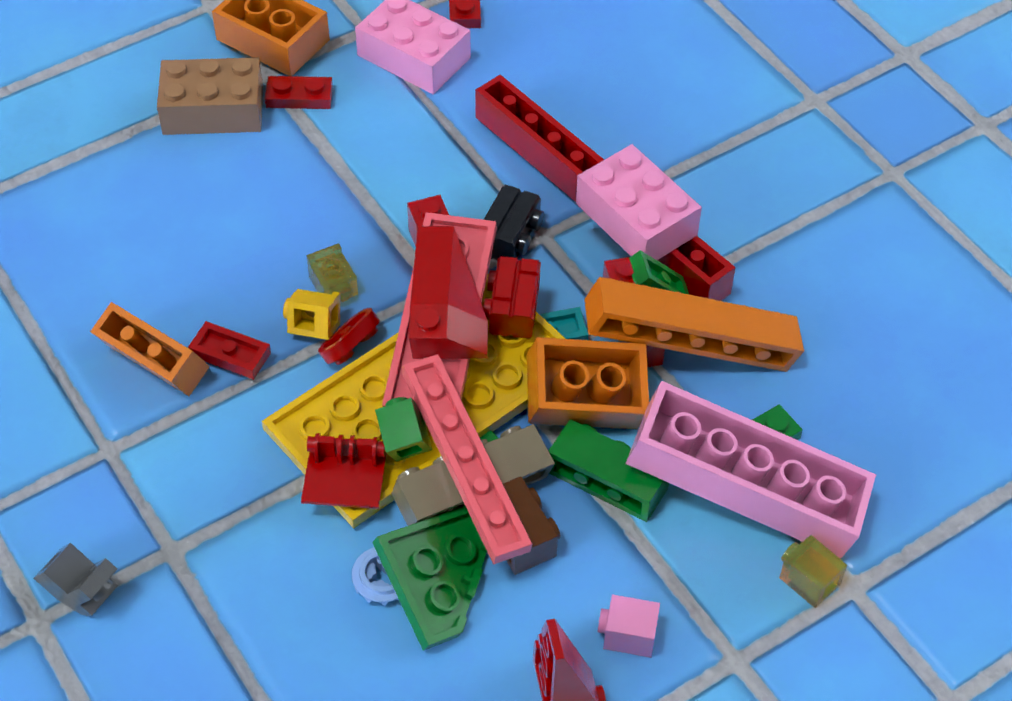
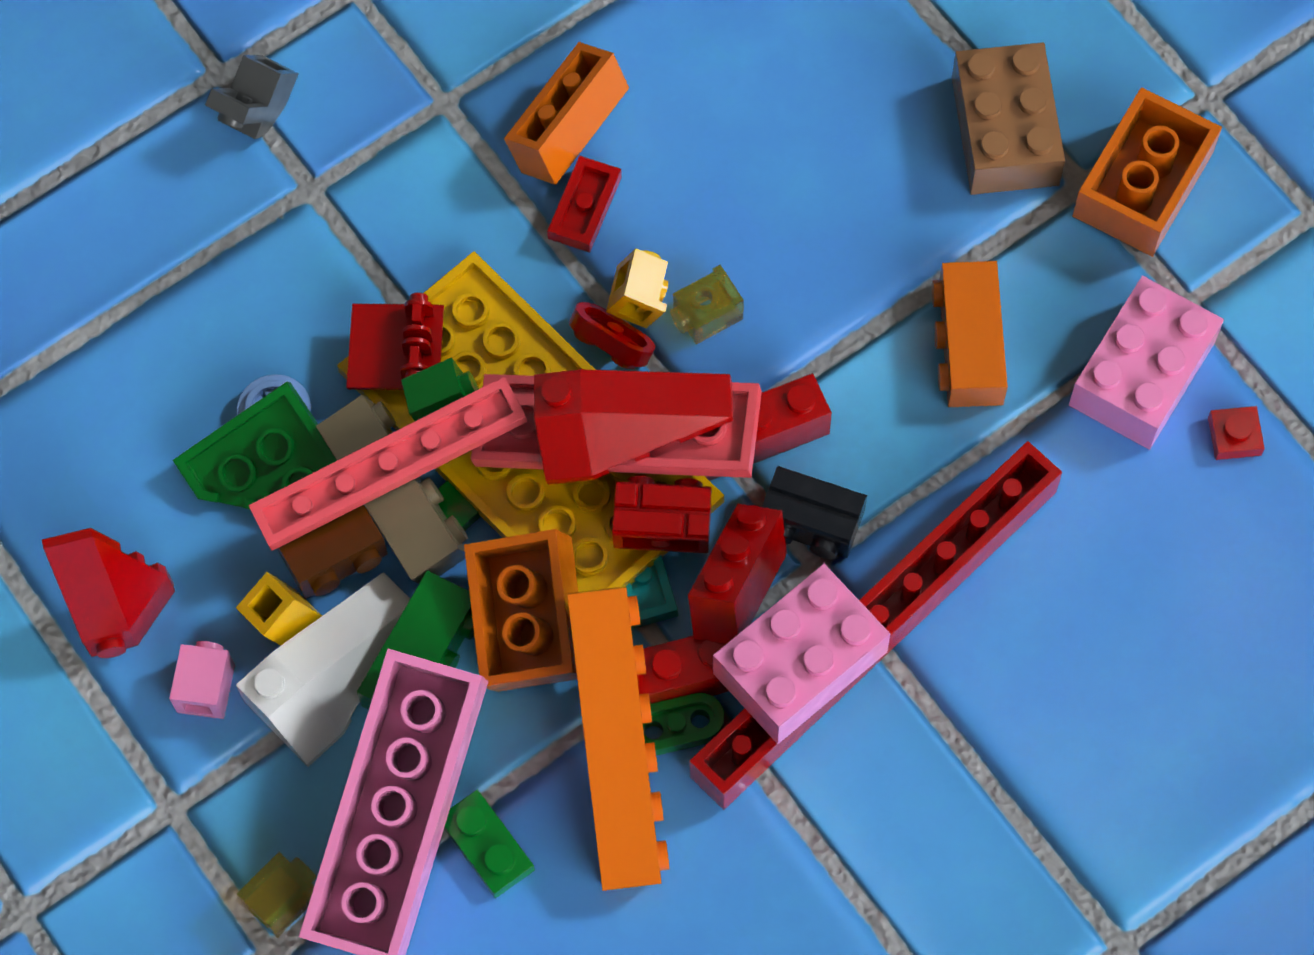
camera: 90 degrees right, 15 degrees up
(299, 92) = (1043, 230): red plate -> none
(378, 129) = (970, 334): none -> orange brick
(568, 250) = (737, 573): none -> red brick
(576, 559) = (277, 609): none -> yellow brick
(626, 546) = (313, 679): none -> white wedge
(655, 274) = (689, 694): green plate -> none

